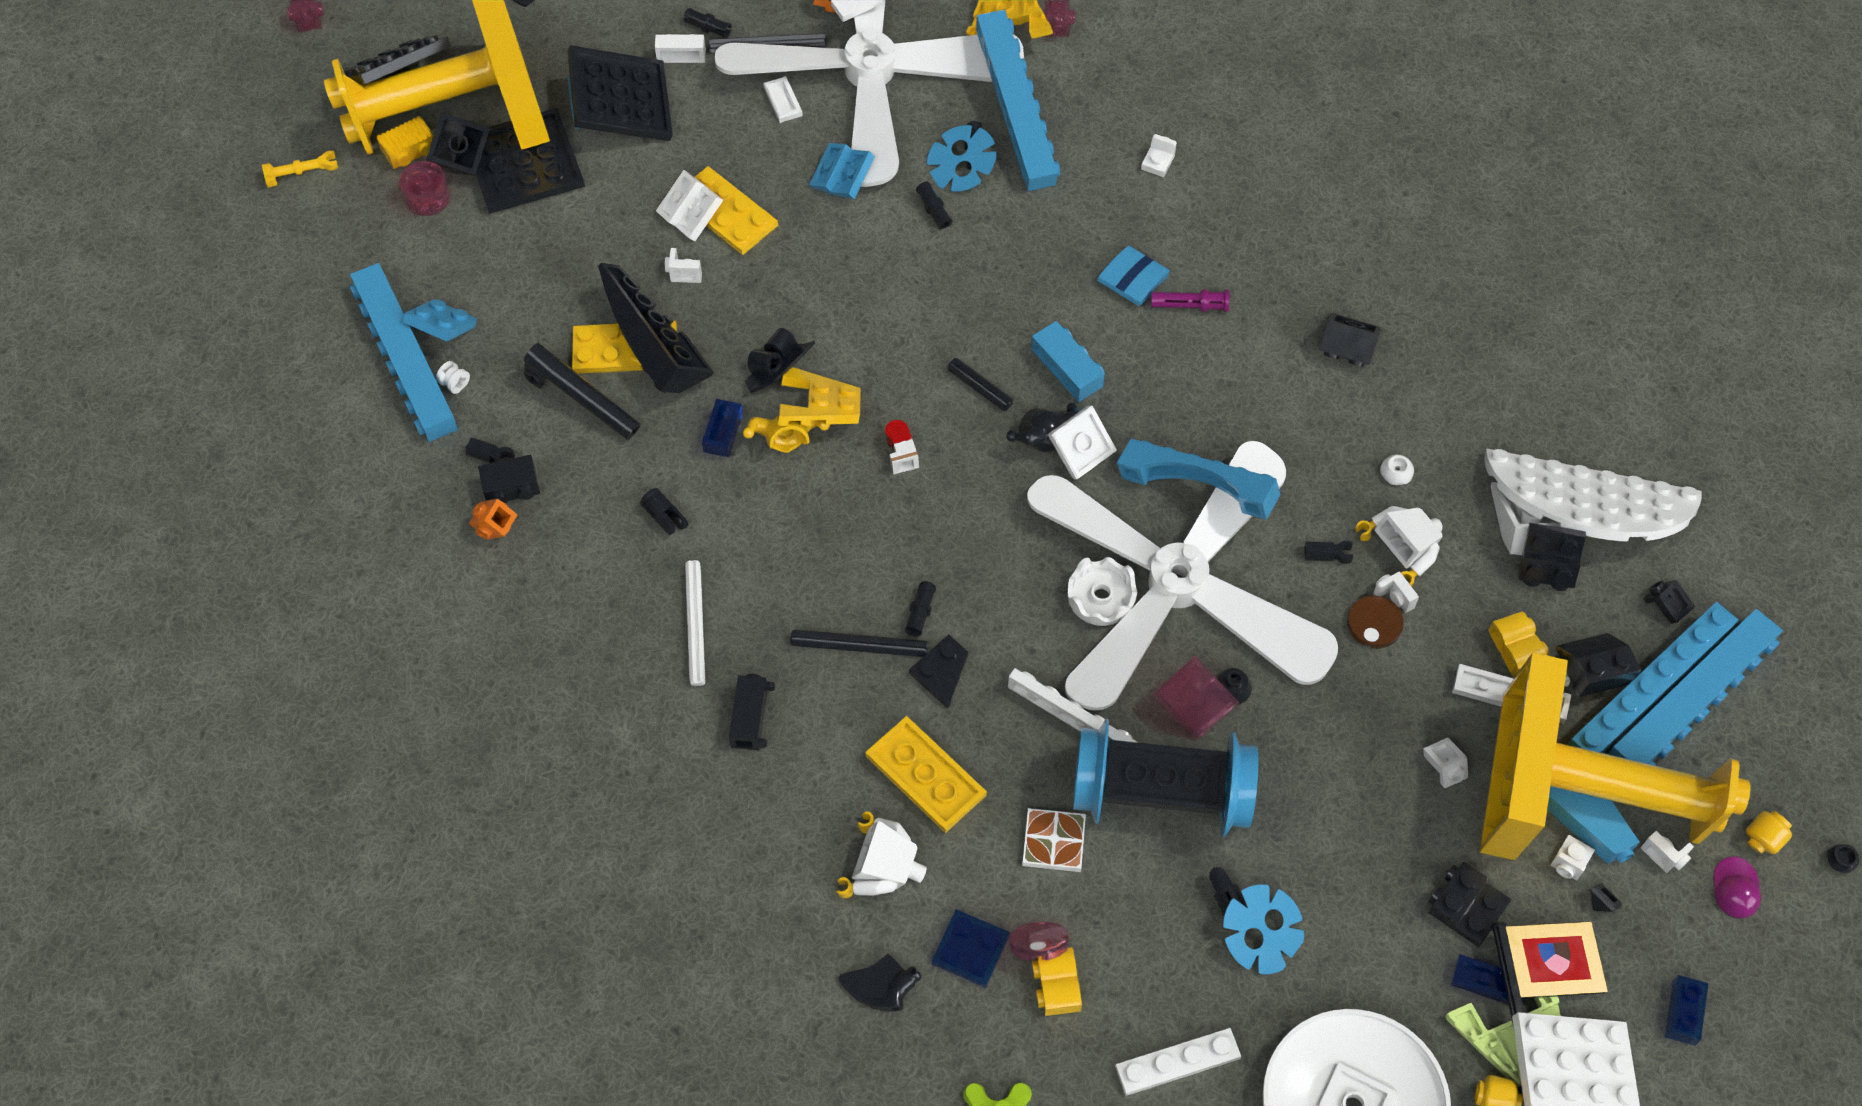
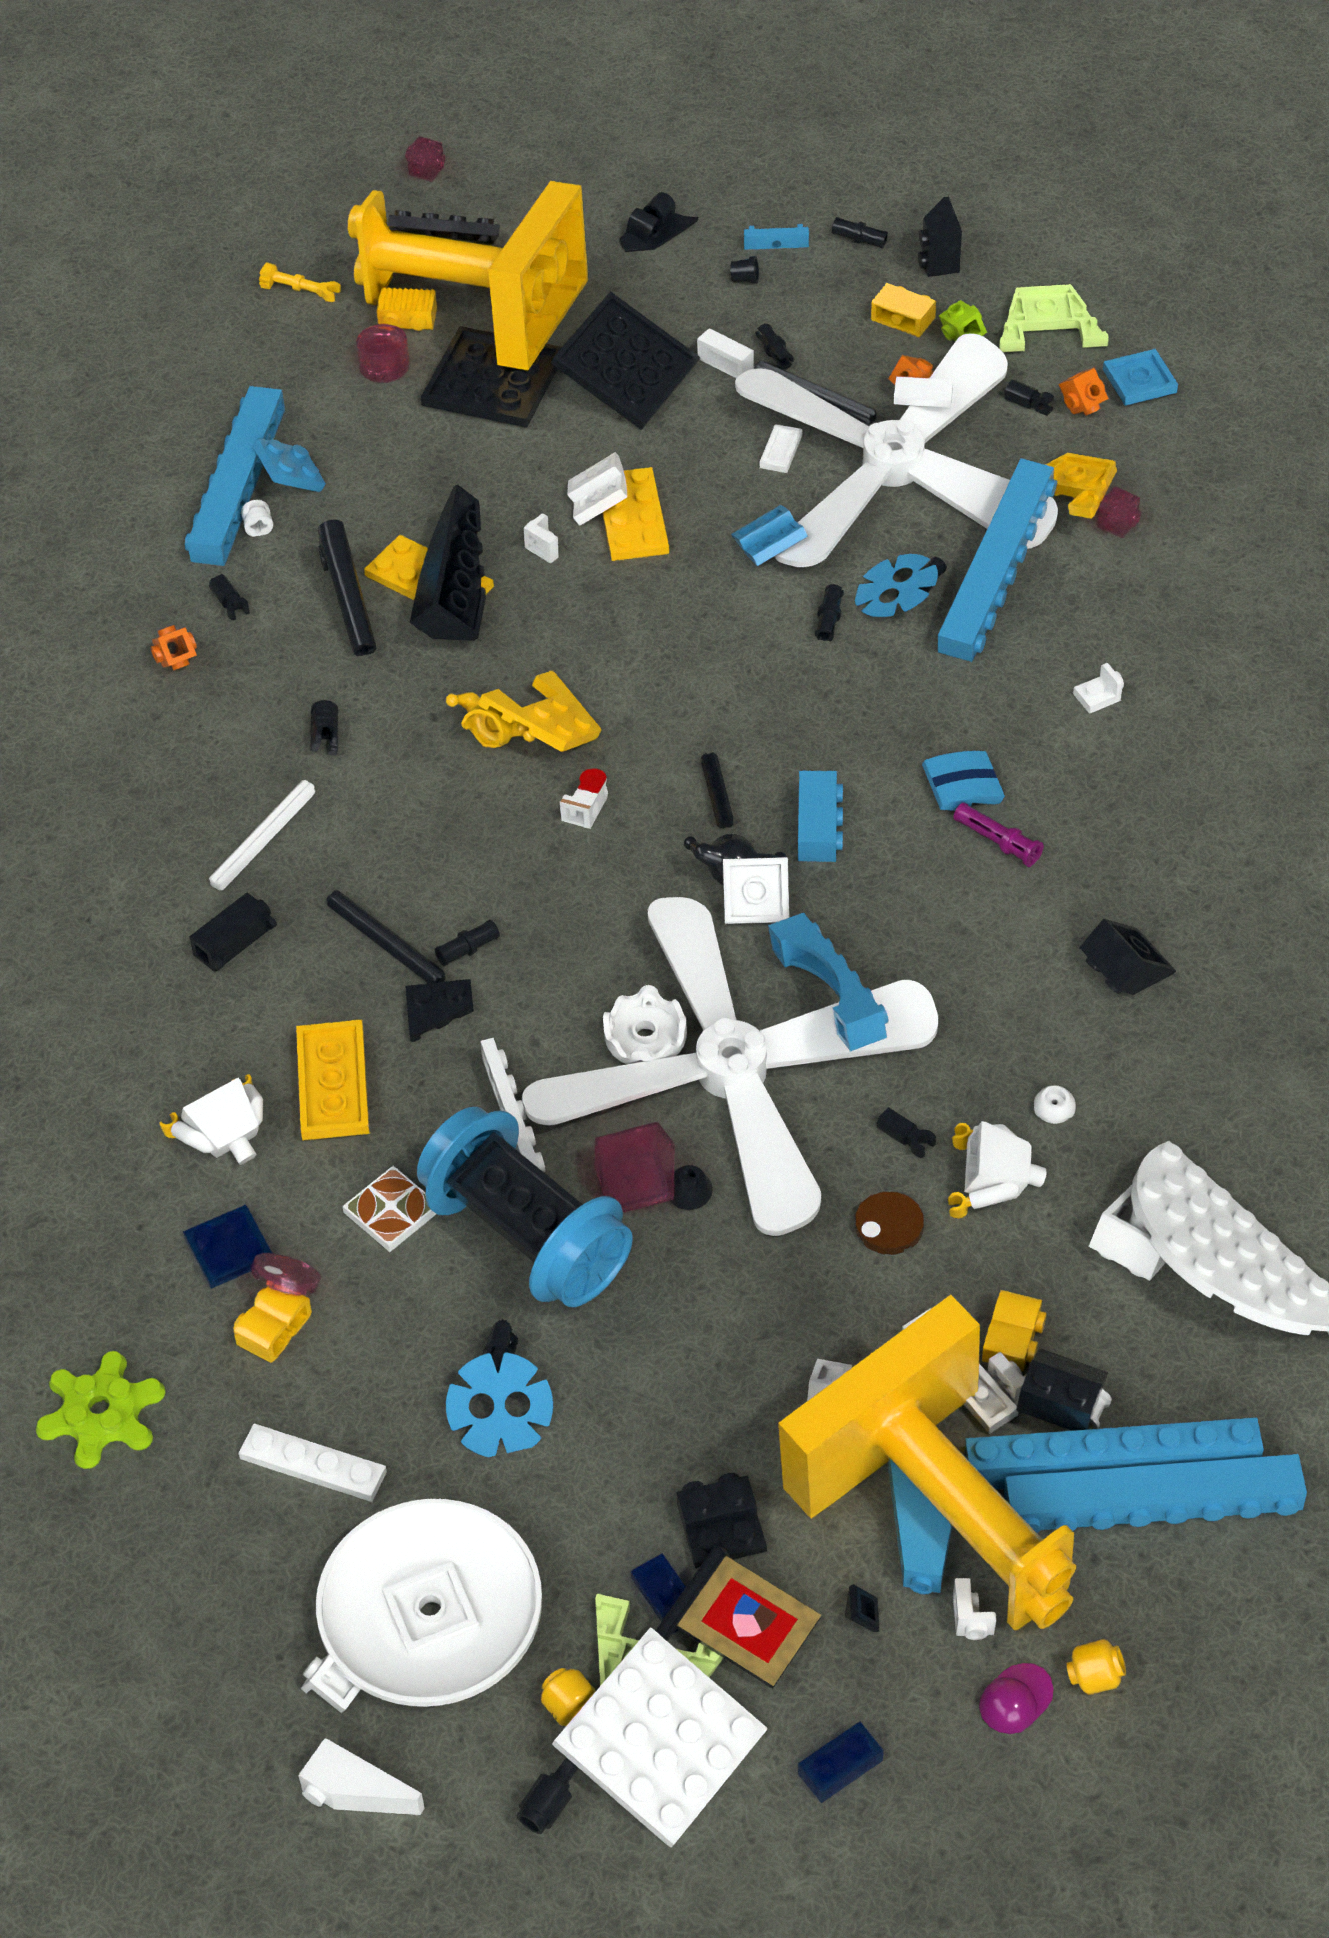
camera: 40 degrees right, 10 degrees down
(457, 145) = (439, 328): black slope -> none
(509, 479) = (221, 626): black brick -> none
(722, 428) = (430, 693): clear blue piece -> none
(775, 360) = (560, 655): black panel -> none
(881, 984) = (125, 1223): black arm -> none
(1400, 591) = (936, 1200): white bracket -> none
(1551, 556) = (1122, 1270): black plate -> none
(1572, 858) = (867, 1553): white bracket -> none
(1670, 599) = (1220, 1395): black bracket -> none
(1843, 858) = (1158, 1748): black plate -> none

